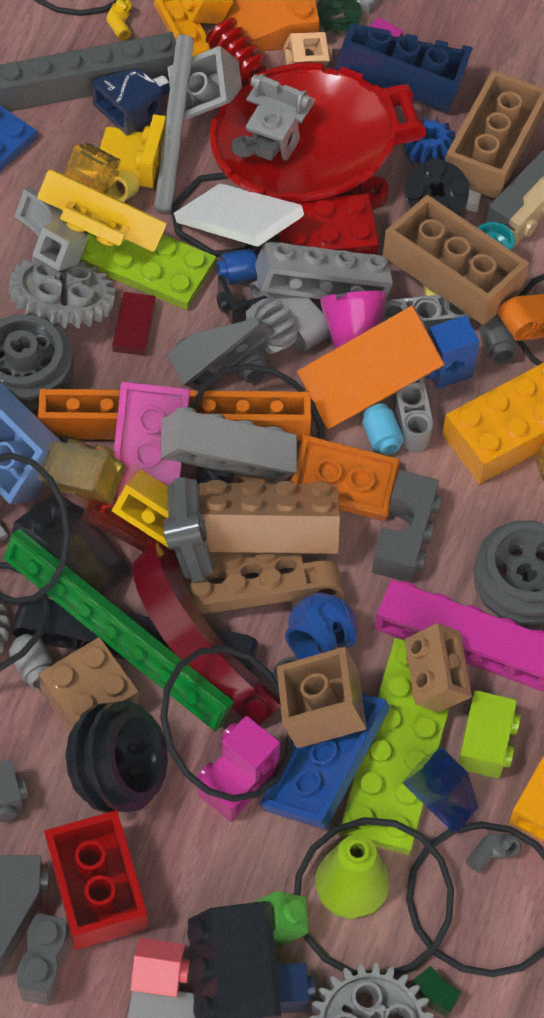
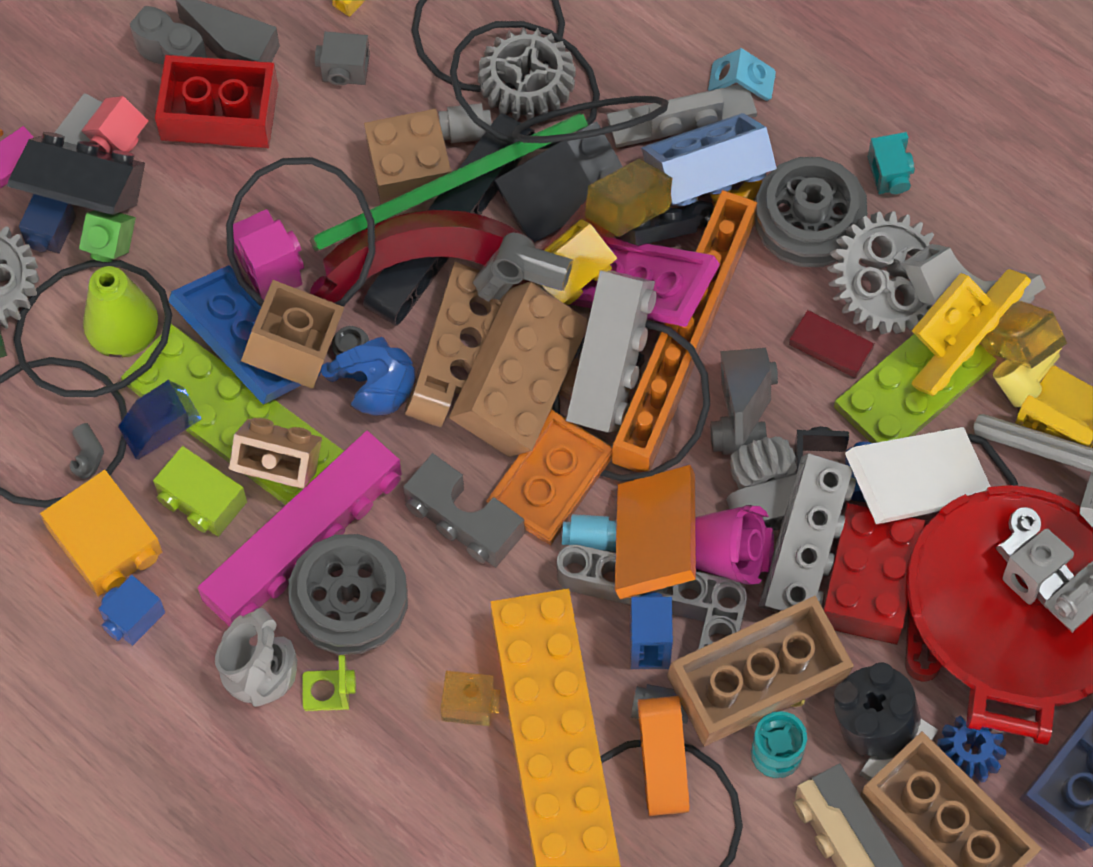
camera: 115 degrees right, 5 degrees up
(116, 757) = (333, 133): black wheel -> none

